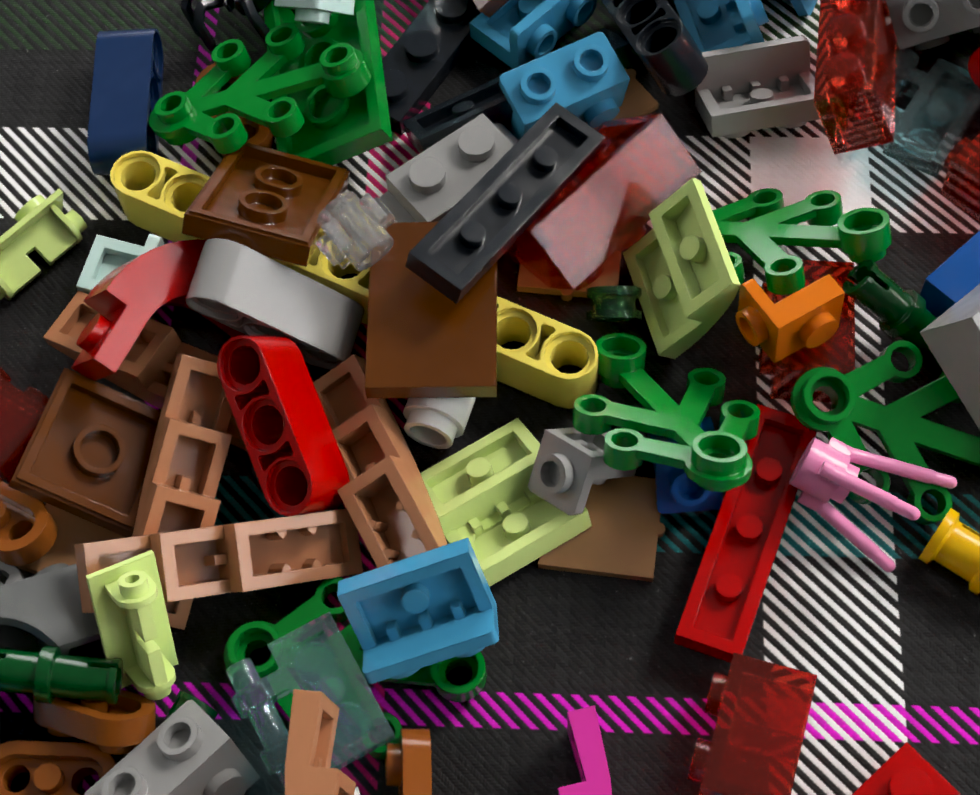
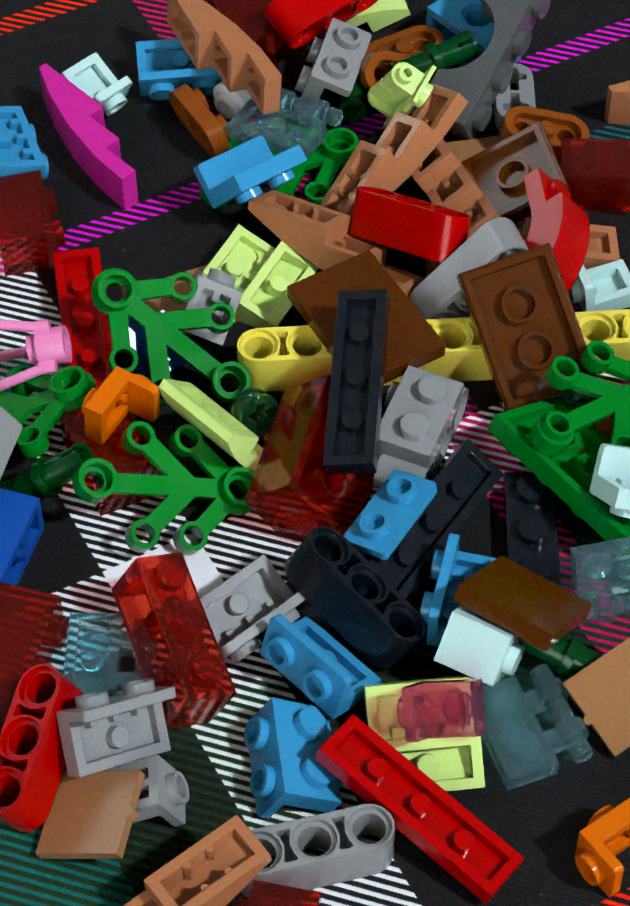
camera: 145 degrees right, 10 degrees down
(355, 231) = (442, 310): clear gear -> none

